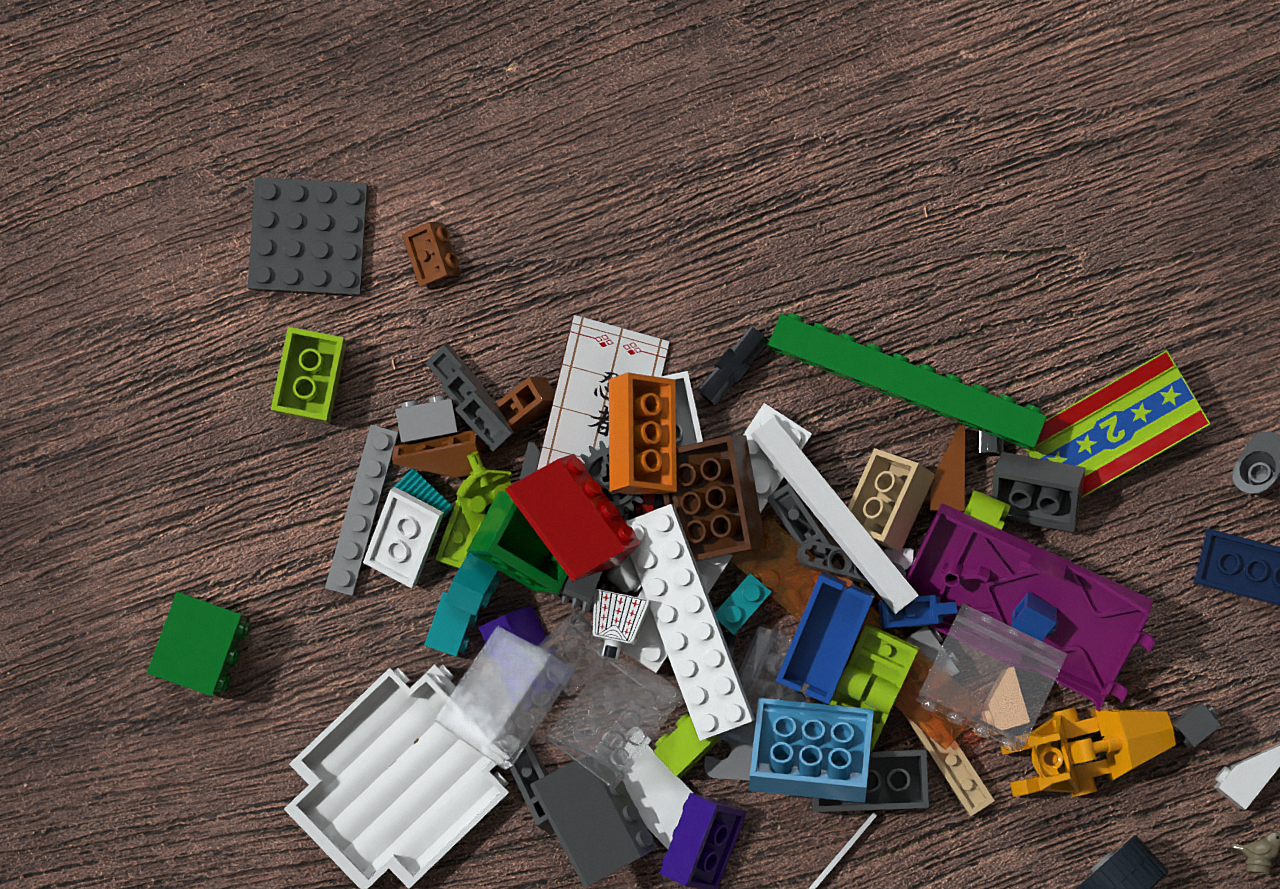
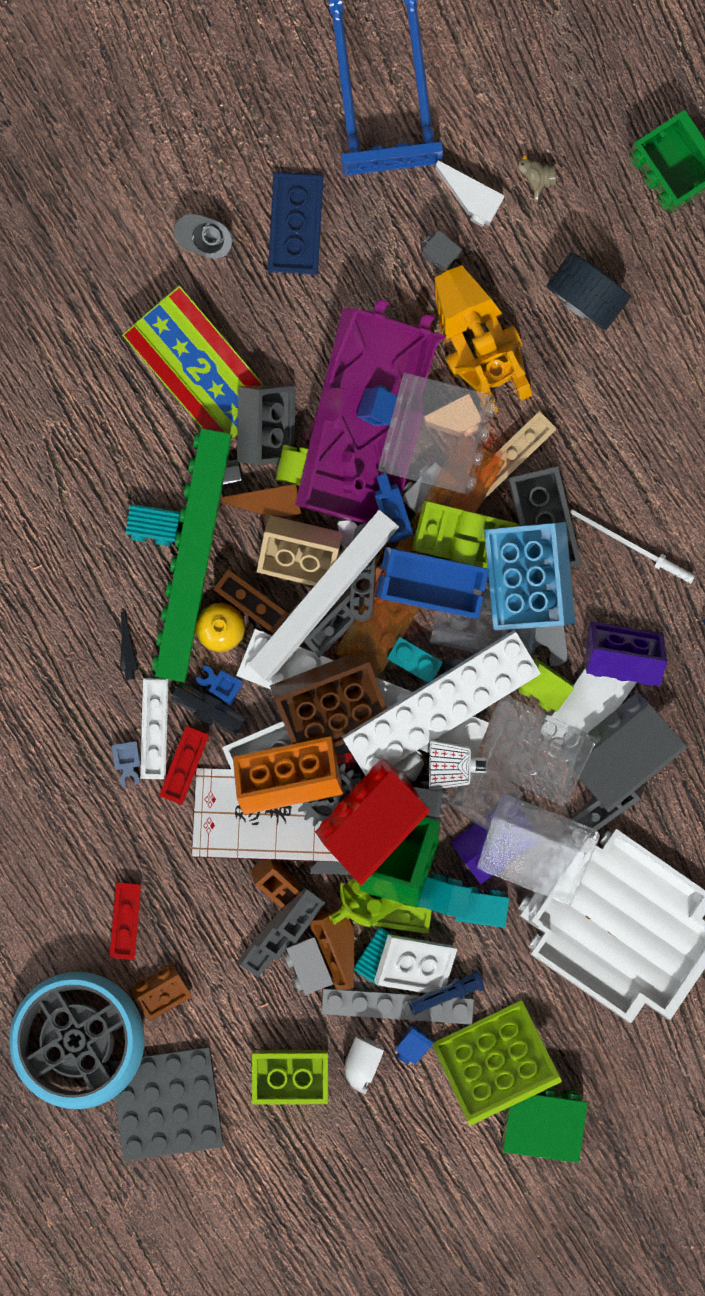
camera: 100 degrees left, 5 degrees up
(276, 604) = (496, 1063): none -> lime plate
(307, 457) = (362, 1063): none -> white brick
(315, 518) = (413, 1045): none -> blue slope
(367, 579) = (457, 989): none -> dark blue pin
(446, 134) = (52, 999): none -> dark grey wheel
(517, 230) = (125, 920): none -> red plate
(675, 328) = (184, 765): none -> red plate
(696, 266) = (126, 758): none -> sand blue plate
(722, 303) = (154, 728): none -> white tile
(754, 386) = (222, 686): none -> blue plate
(804, 289) = (128, 660): none -> black piece
(820, 397) = (220, 627): none -> yellow cylinder
(843, 435) = (251, 601): none -> reddish brown brick
(949, 345) = (152, 523): none -> teal brick

